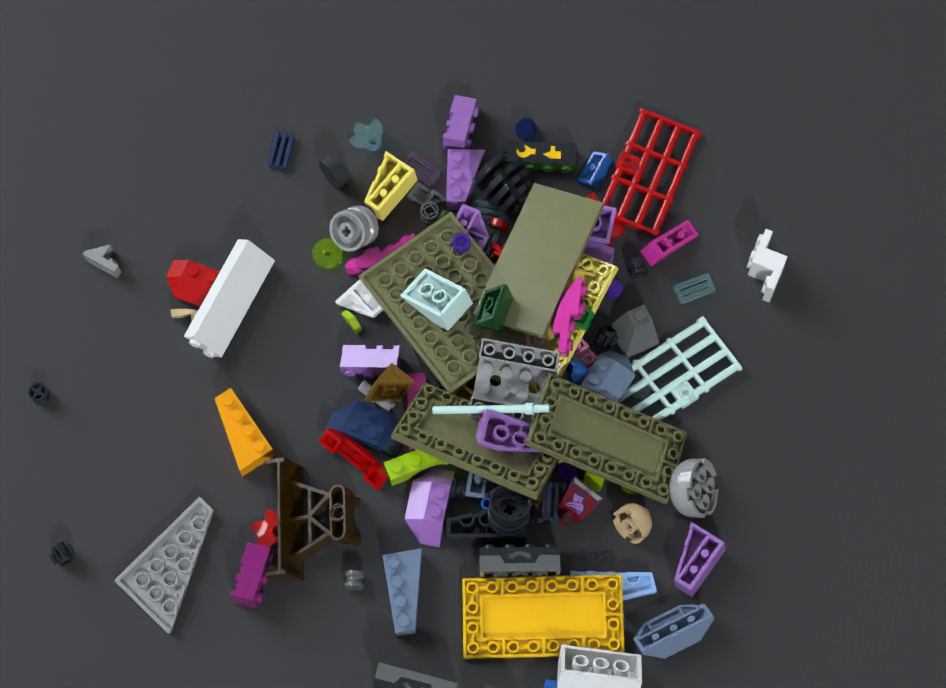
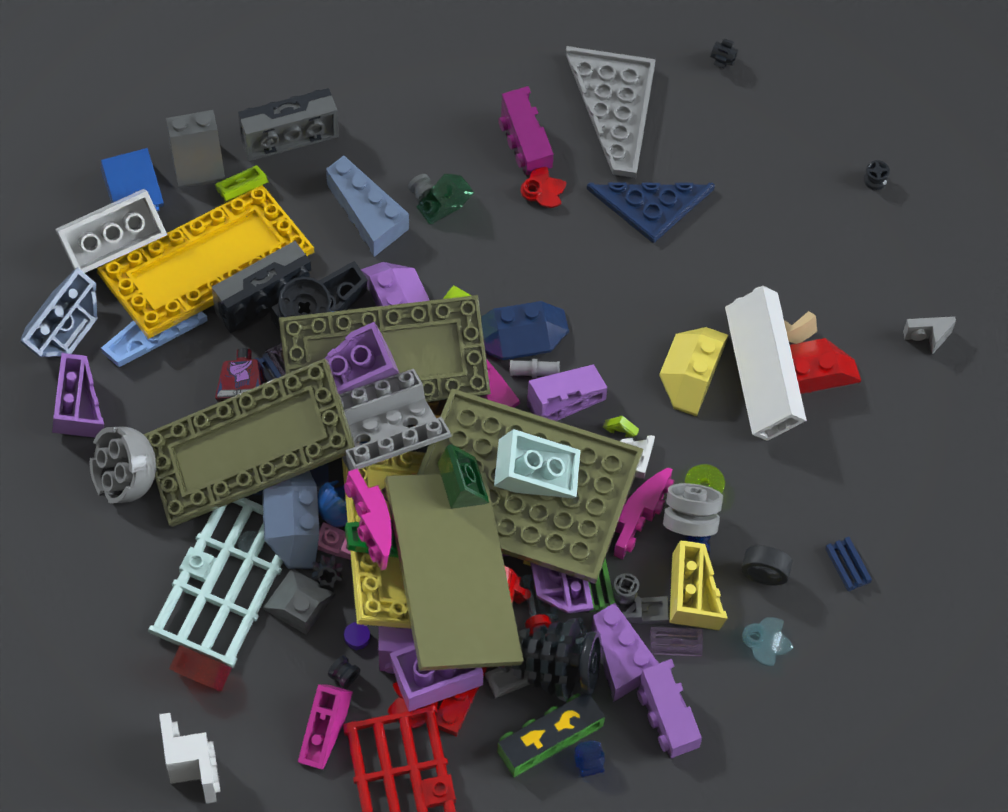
camera: 140 degrees right, 10 degrees down
(206, 470) = (651, 206): none -> dark blue tile
(243, 434) = (643, 252): light orange wedge -> none
(271, 333) = (691, 367): none -> light yellow wedge
(291, 519) = (521, 203): dark brown piece -> none
(341, 560) = (445, 198): none -> clear green slope
(355, 454) = (504, 299): red slope -> none
(390, 385) = (525, 364): pearl gold slope -> none
(461, 242) = (557, 548): dark purple tile -> none
(479, 668) = (241, 183): none -> lime tile
(528, 409) = (349, 391): light aqua bar -> none
(595, 170) = (473, 764): blue slope -> none
(633, 521) = (168, 398): tan cylinder -> none
(711, 289) = (250, 711): clear light blue tile -> none
(726, 322) = (200, 668): none -> clear red slope

